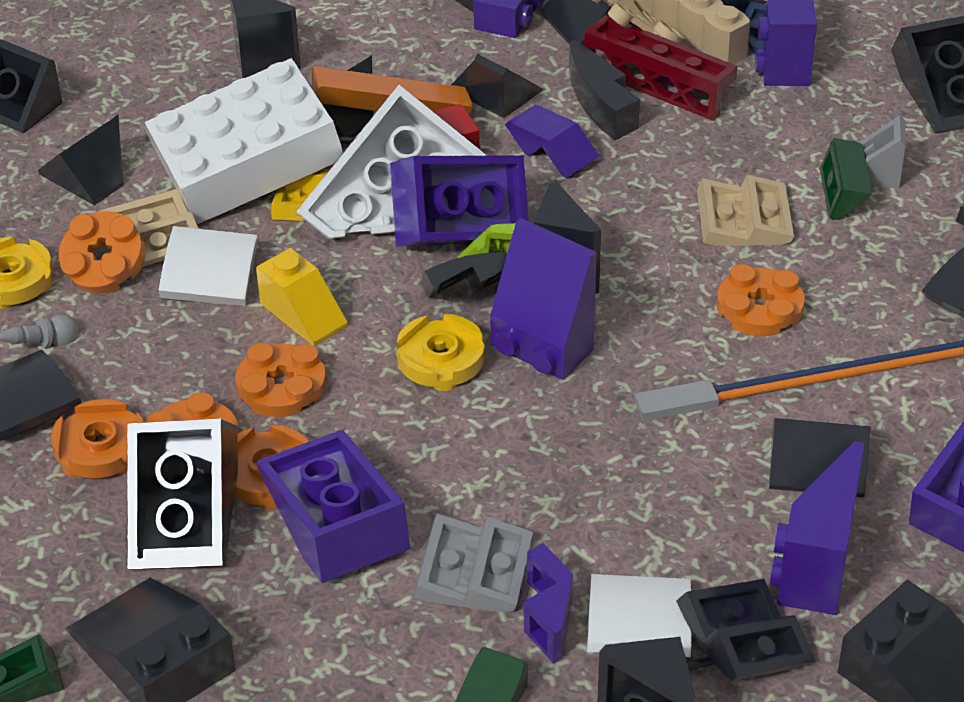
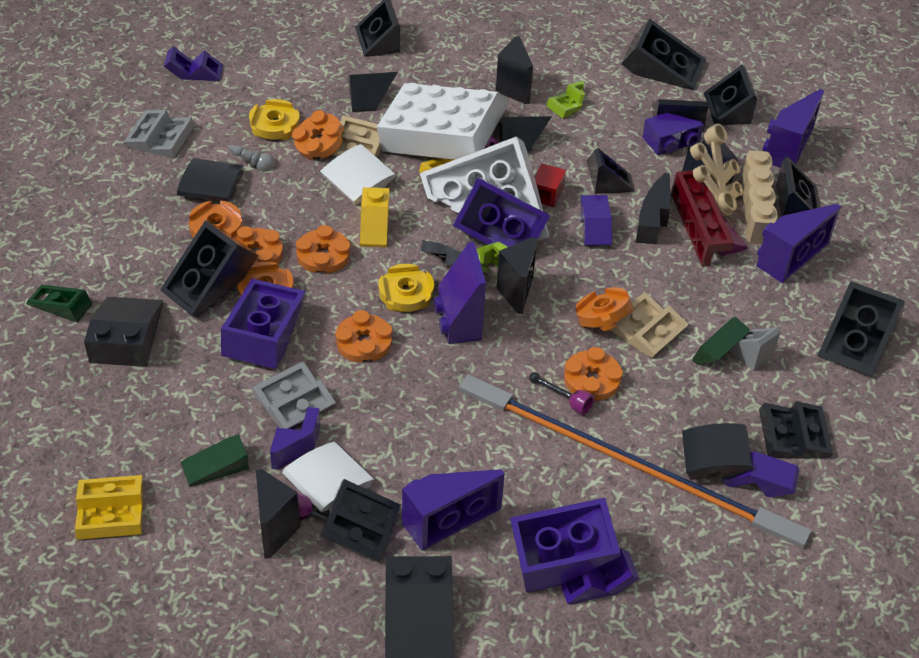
camera: 40 degrees right, 5 degrees up
(347, 37) = (569, 102): none -> lime slope
(372, 90) = (540, 142): orange slope -> none
(477, 420) = (359, 324): none -> orange plate
(678, 236) = (604, 309): none -> orange plate
(786, 334) = (579, 401): none -> hinge
(807, 448) = (523, 467): black slope -> none

